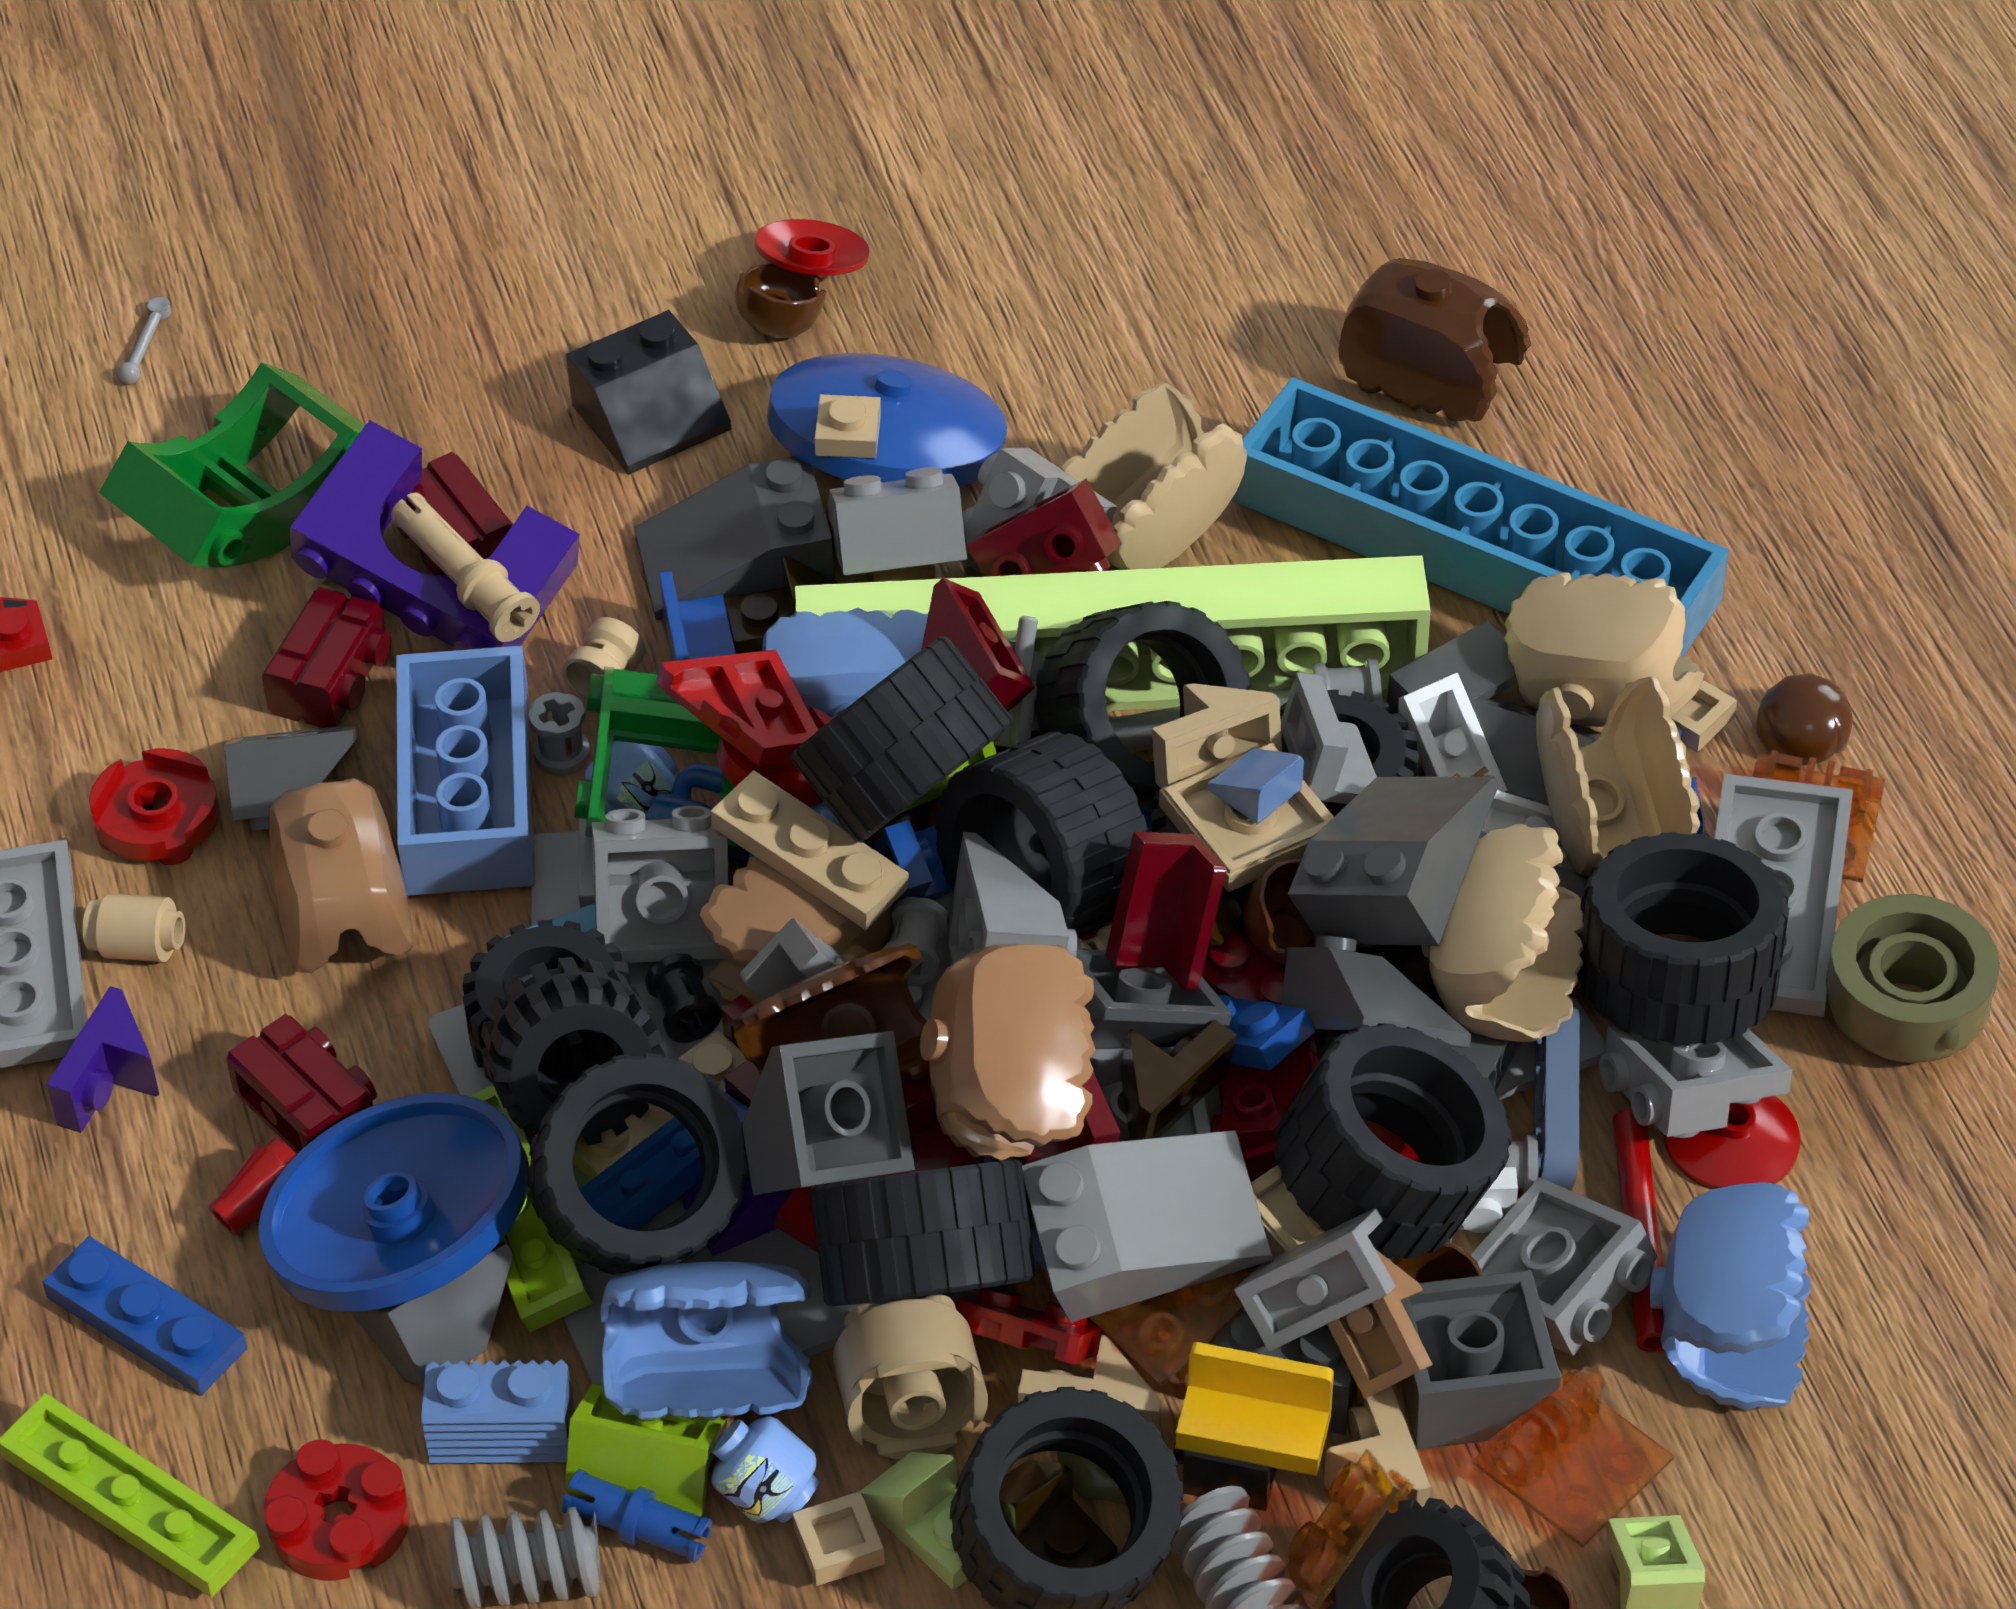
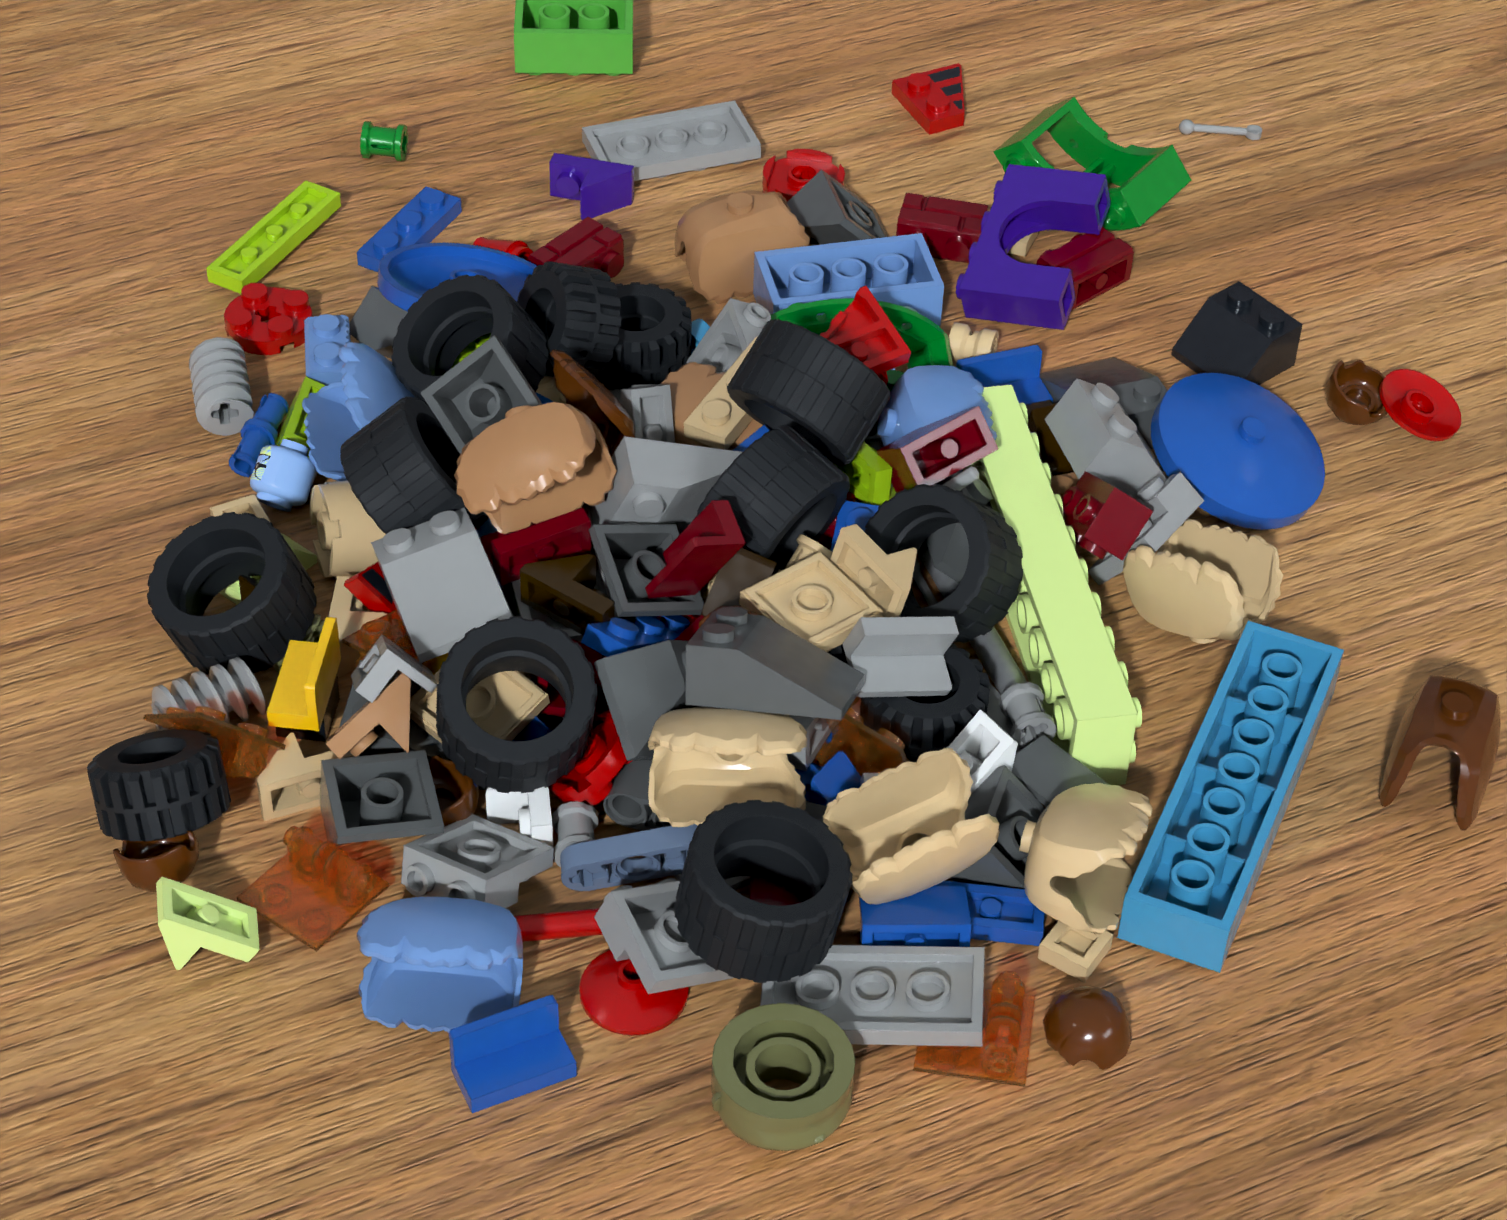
camera: 80 degrees right, 5 degrees down
(133, 927) = (698, 180): tan brick -> none
(479, 581) = (990, 254): tan pin -> none
(847, 426) = (1184, 398): tan plate -> none
(1259, 782) = (824, 594): medium blue slope -> none
(1858, 1254) = (510, 1054): none -> blue panel

